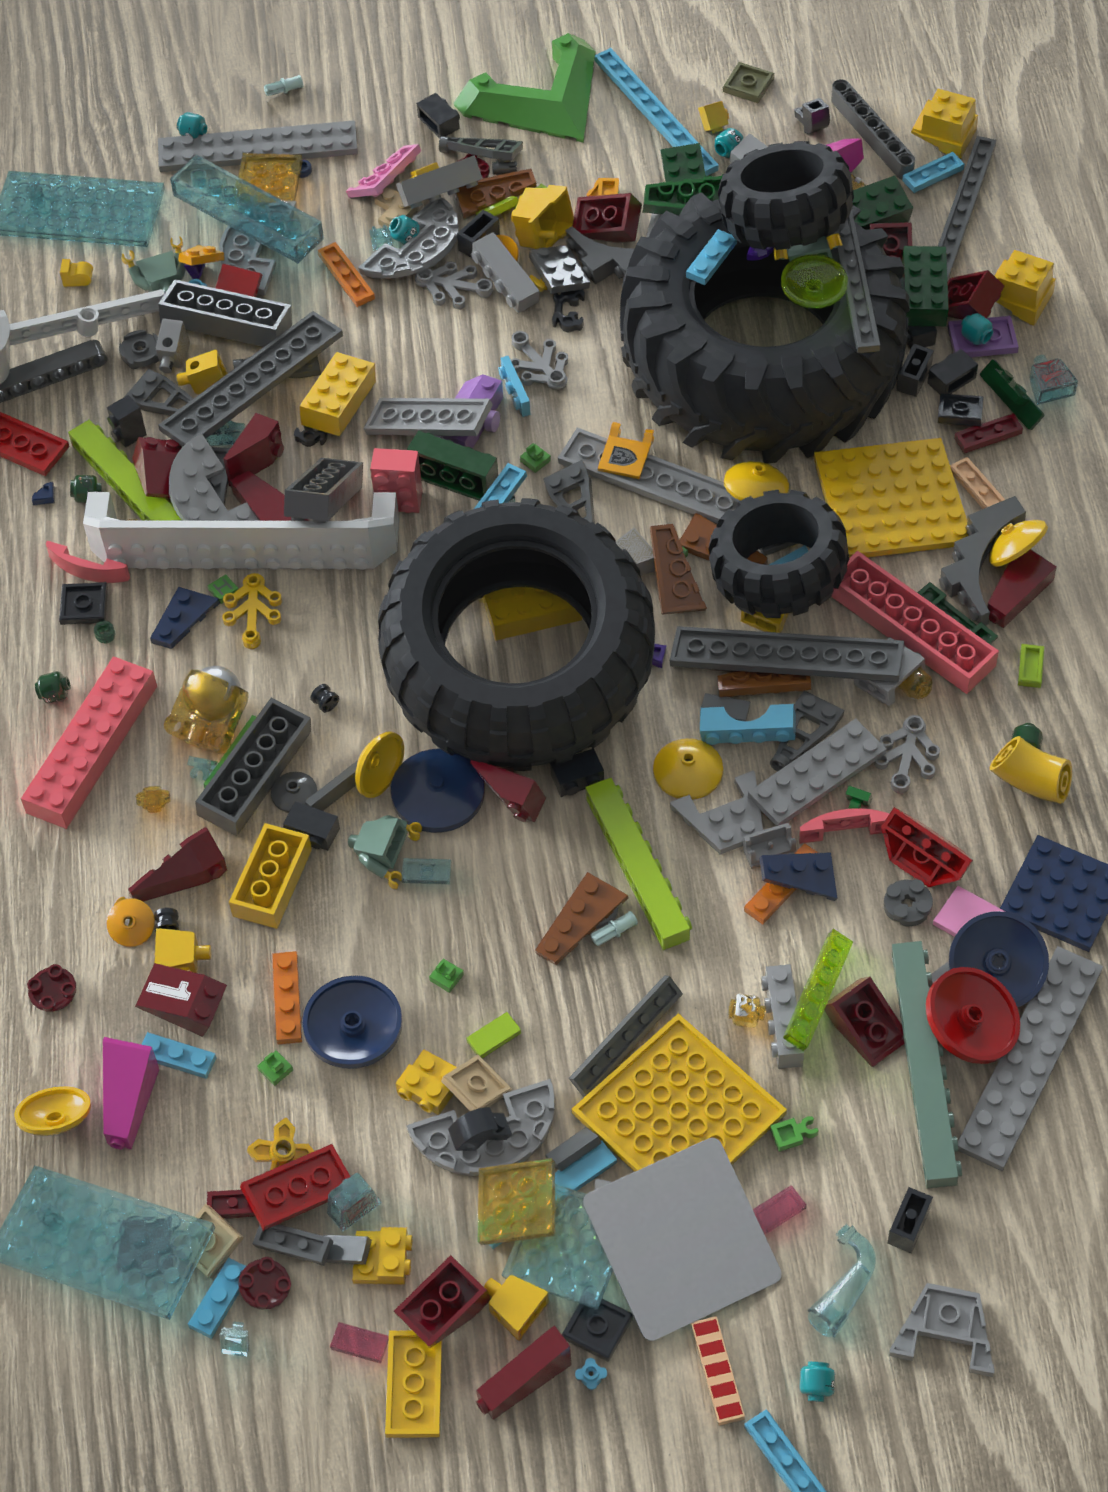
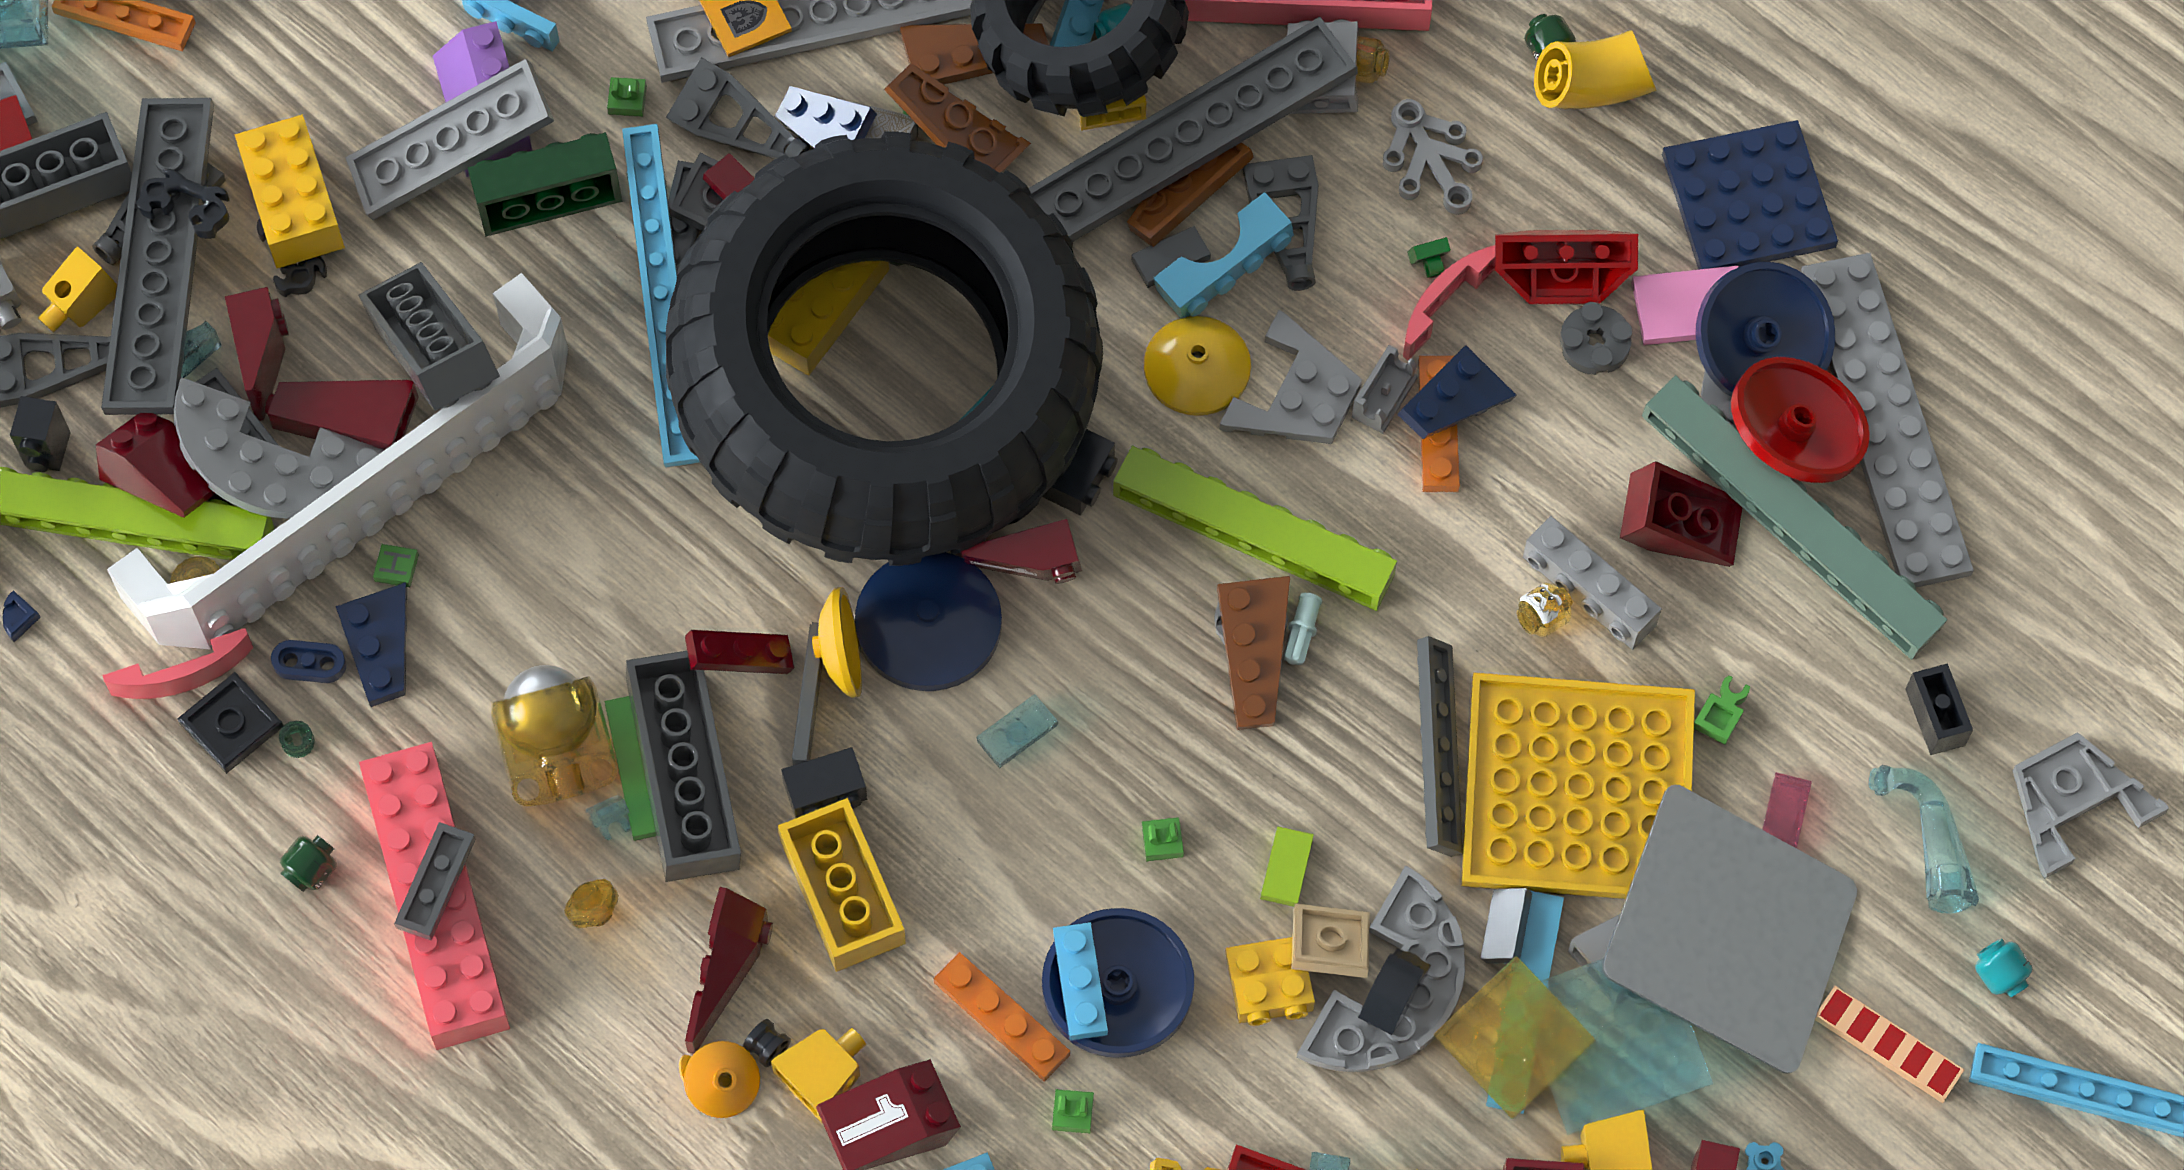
camera: 45 degrees left, 10 degrees up
(82, 485) = (73, 567): dark green head -> none
(87, 729) = (435, 881): none -> dark grey plate
(144, 602) = (310, 658): none -> dark blue plate
(251, 606) = (460, 559): yellow plant -> none
(284, 376) = (212, 214): none -> black helmet
(284, 797) = (757, 773): dark grey dish -> none
(324, 698) = (676, 610): black wheel -> none
(330, 735) = (739, 652): none -> dark red plate
(331, 1004) = (1080, 981): none -> medium azure plate
(381, 843) = (935, 741): sand green torso -> none
(399, 473) = (496, 250): coral brick -> none
(598, 1329) = (1728, 1108): black plate -> none
(616, 524) = (821, 116): none -> wing
(816, 773) = (1356, 258): light grey plate -> none
(818, 990) = (1606, 521): clear neon green plate -> none

